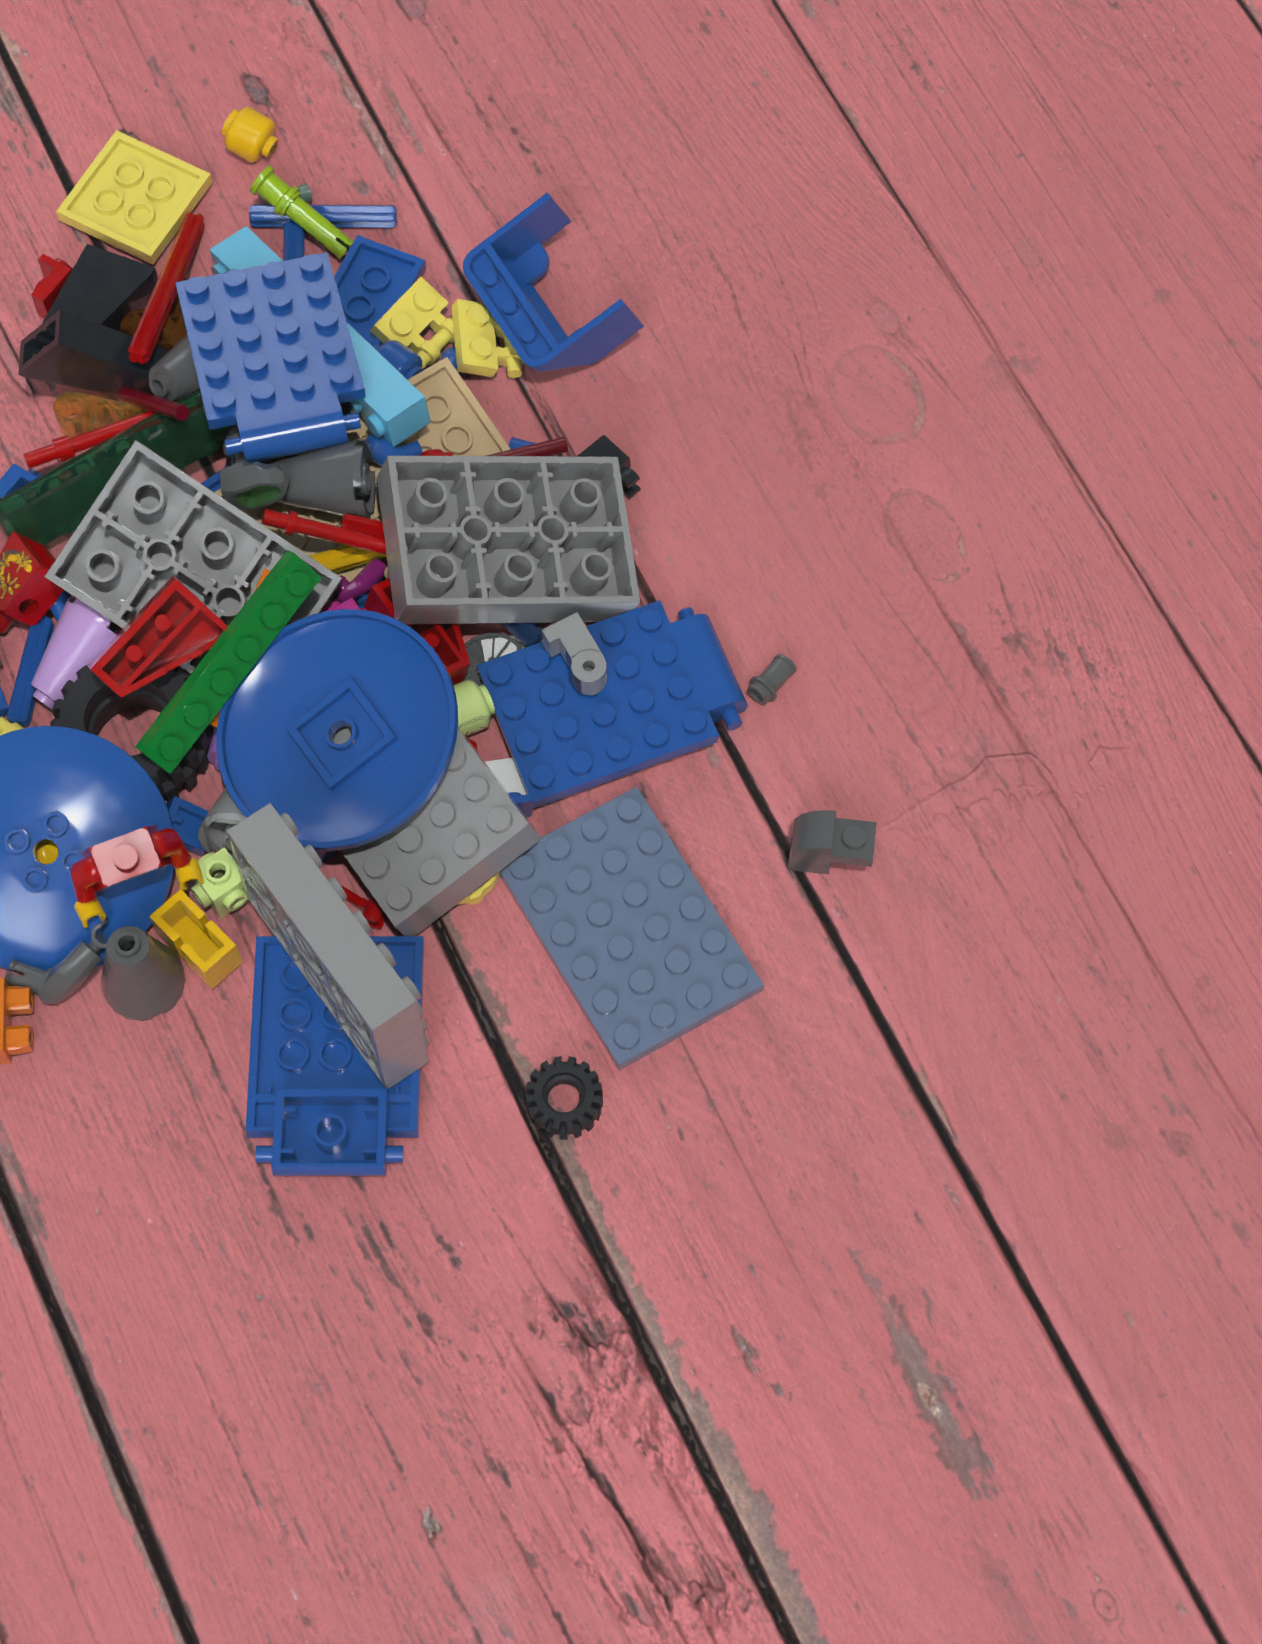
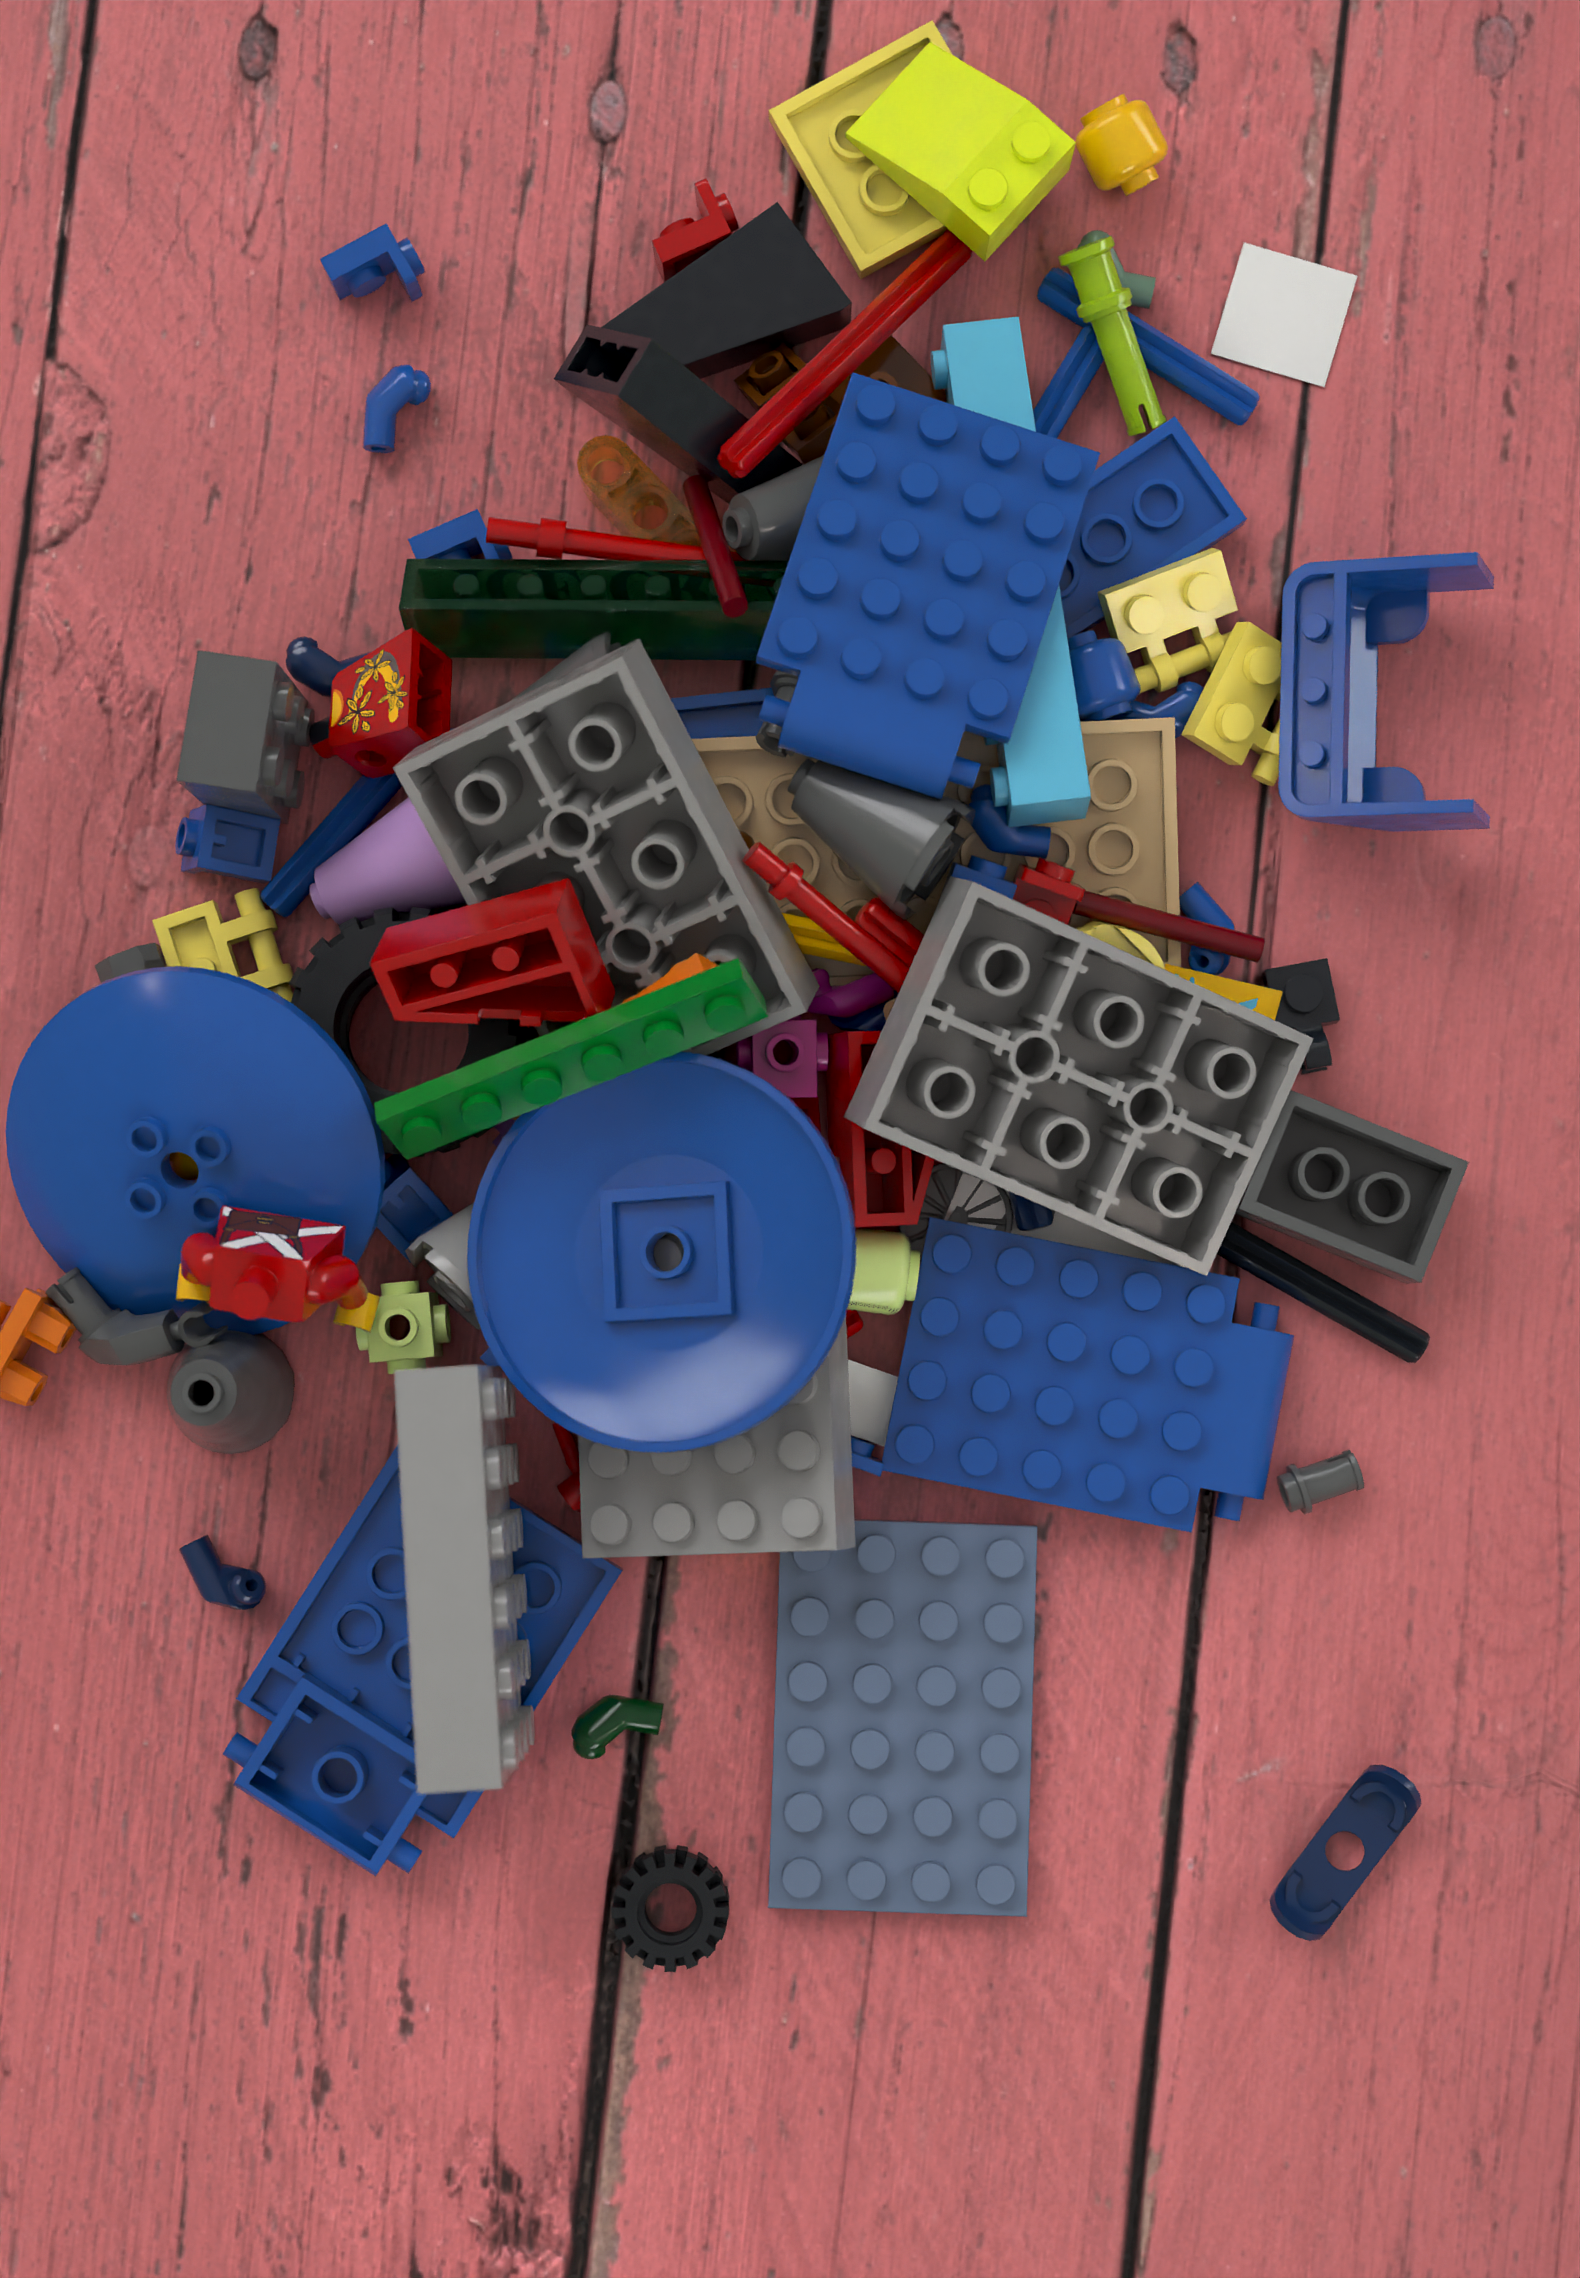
camera: 35 degrees right, 20 degrees up
(170, 171) = (963, 147): none -> neon yellow slope
(187, 932) = (321, 1364): yellow piece -> none
(201, 1081) = (219, 1582): none -> dark blue arm
(253, 484) = (769, 784): dark grey rock -> none
(384, 169) = (1284, 314): none -> white sticker
(466, 1020) = (611, 1717): none -> dark green arm
(579, 651) = (1073, 1333): light grey leg -> none
(688, 526) = (1353, 1188): none -> dark grey brick
(711, 591) = (1323, 1294): none -> black axle
(824, 839) = (1241, 1785): dark grey brick -> none
(912, 824) = (1316, 1891): none -> dark blue piece

